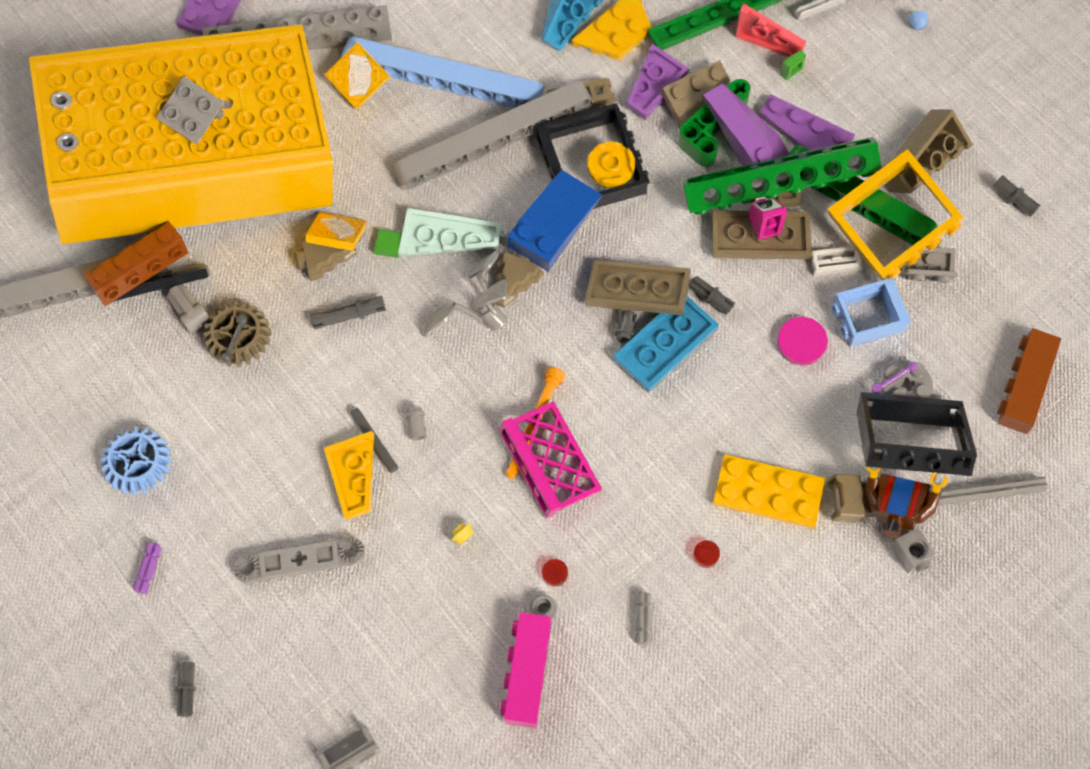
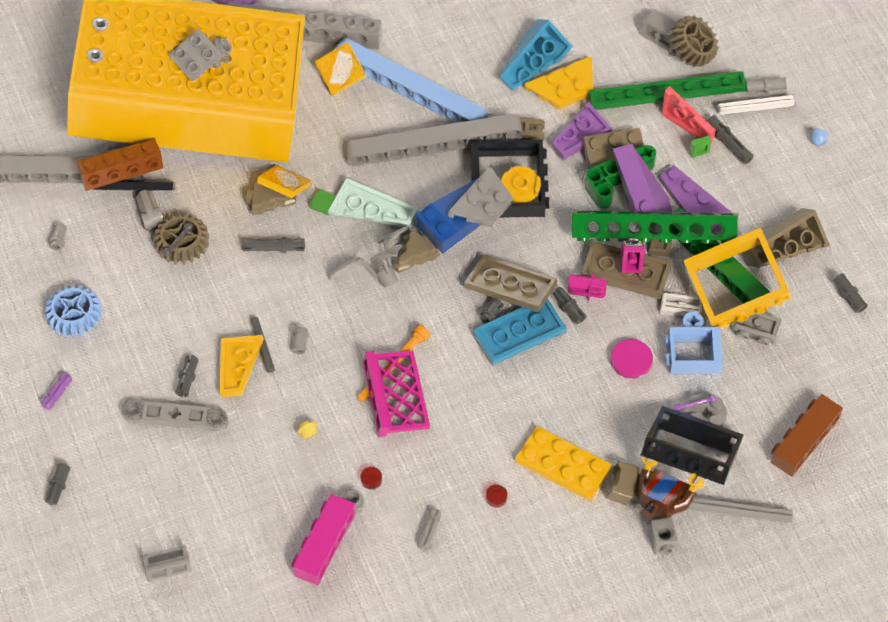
camera: 15 degrees right, 10 degrees down
(88, 371) = (57, 240): none -> light grey pin
(219, 89) = (223, 46): none -> light grey plate
(297, 505) = (186, 376): none -> dark grey pin
(578, 196) = (483, 200): none -> light grey wing
(724, 267) = (587, 286): none -> dark pink arm
(826, 50) = (724, 133): none -> dark grey pin
(851, 278) = (691, 318): none -> light blue wheel

